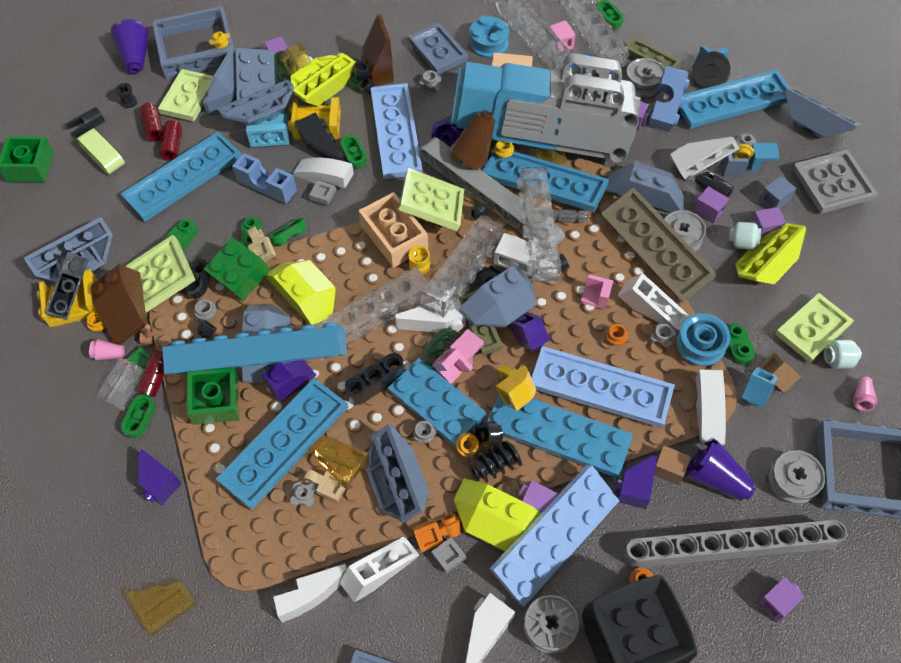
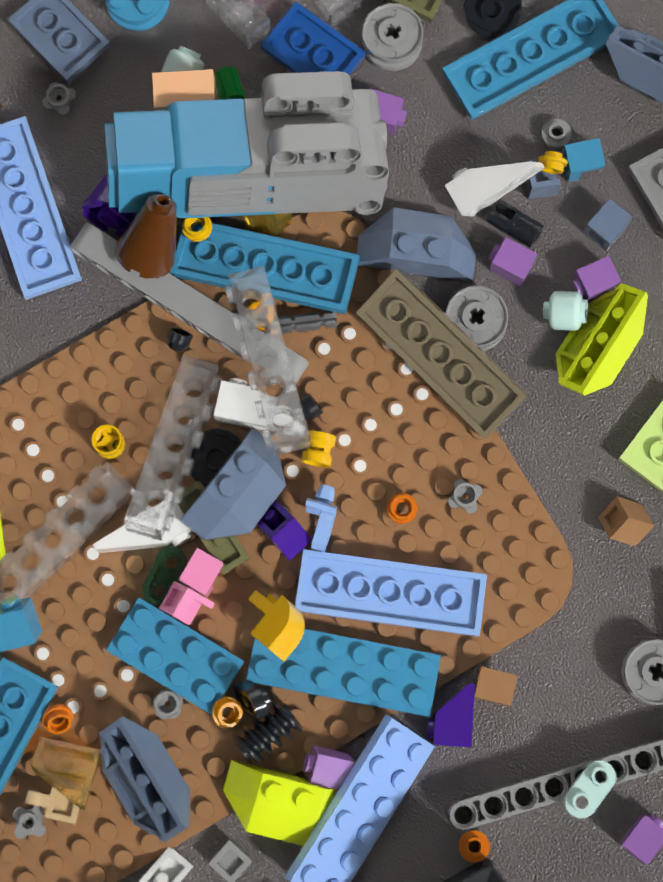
camera: 10 degrees left, 20 degrees up
(342, 432) = (57, 718): none -> orange plate
(371, 388) = (71, 647): black beam -> none
(392, 229) = (60, 400): light nougat brick -> none
(430, 534) = (205, 840): orange plate -> none
(431, 199) = (107, 343): yellowish green plate -> none
(559, 322) = (326, 514): none -> light blue piece
(562, 289) = (319, 451): none -> yellow wheel
(596, 291) = (366, 447): bright pink panel -> none
(652, 302) = (446, 451): white slope -> none
(673, 84) = (438, 56): medium blue arch -> none
(711, 330) = (533, 484): dark azure wheel -> none
(711, 405) = (538, 598): white slope -> none
(720, 471) = (556, 686): dark purple cone -> none
(740, 342) = (567, 484): green plate -> none
(742, 545) = (589, 788): none -> light aqua plate
(759, 387) = (600, 554): dark azure brick -> none

